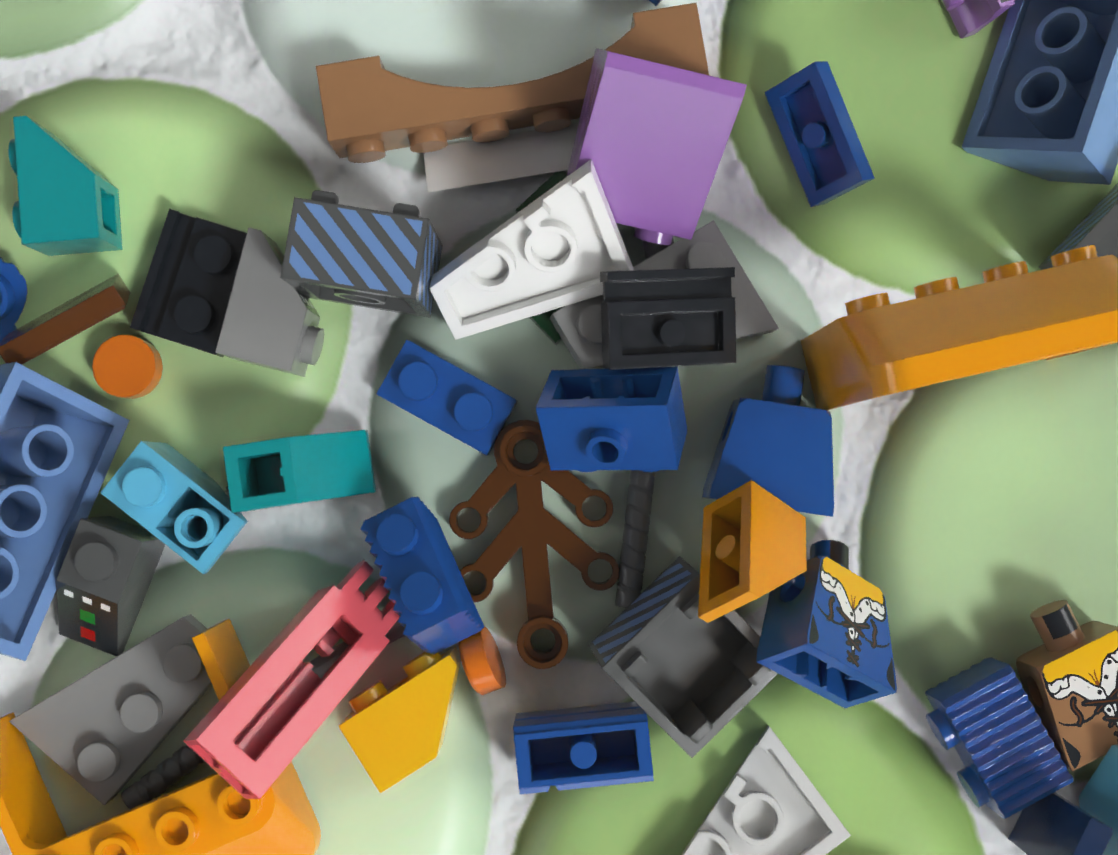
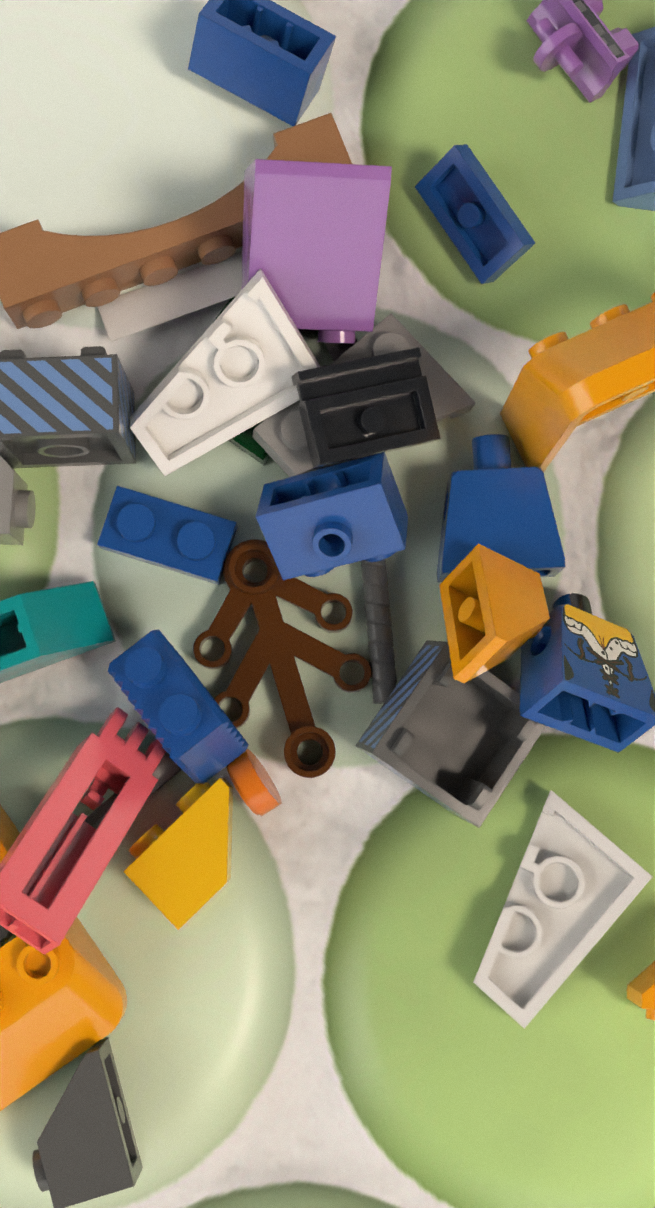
camera: 20 degrees left, 5 degrees down
(582, 747) = (371, 843): blue brick -> none

